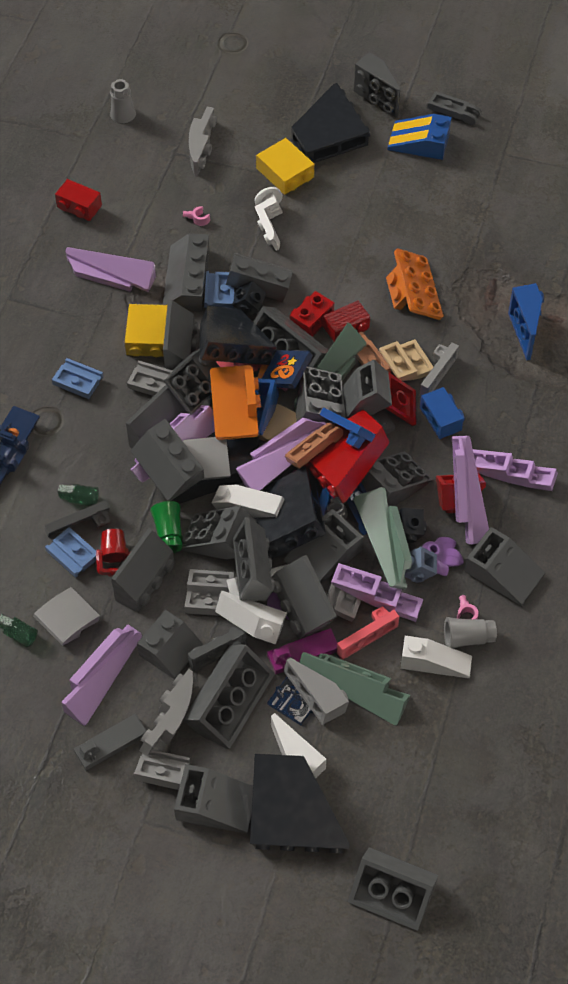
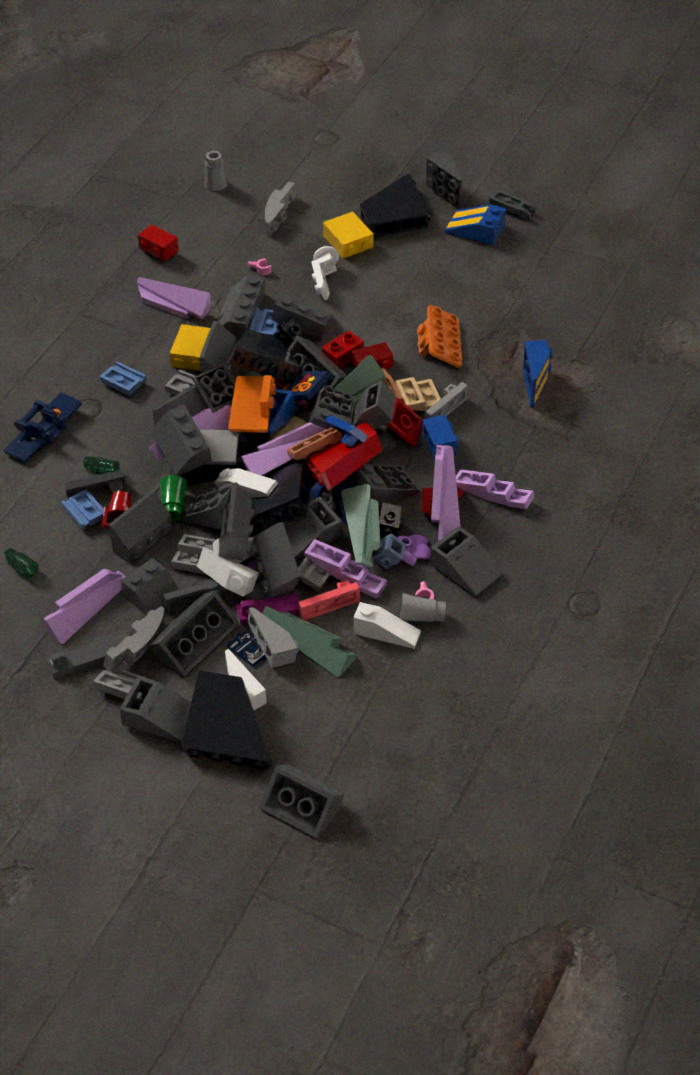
camera: 10 degrees right, 10 degrees down
(66, 616) = (66, 557): light grey slope -> none

